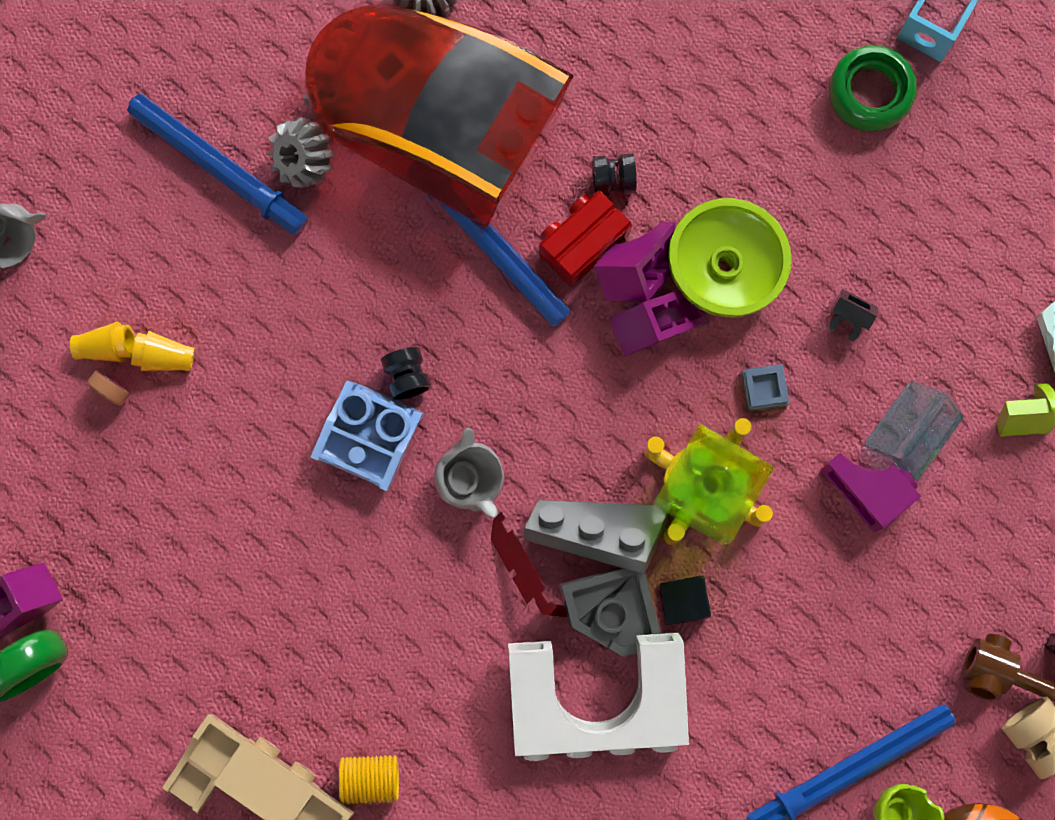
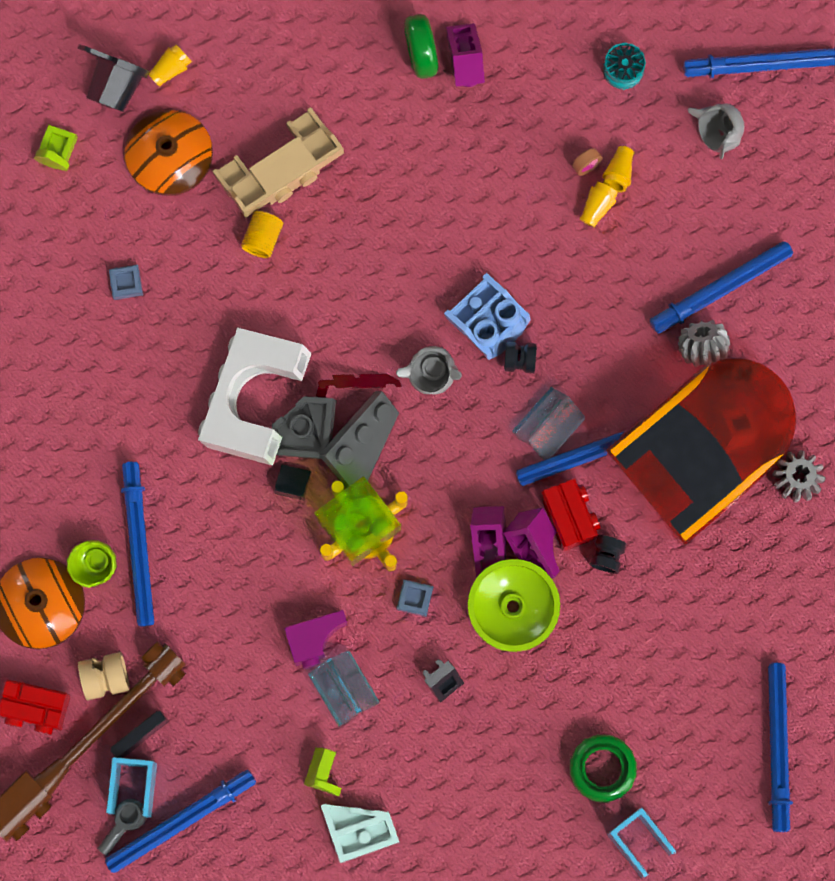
camera: 115 degrees right, 0 degrees up
(476, 308) = (549, 423): none -> clear light blue panel

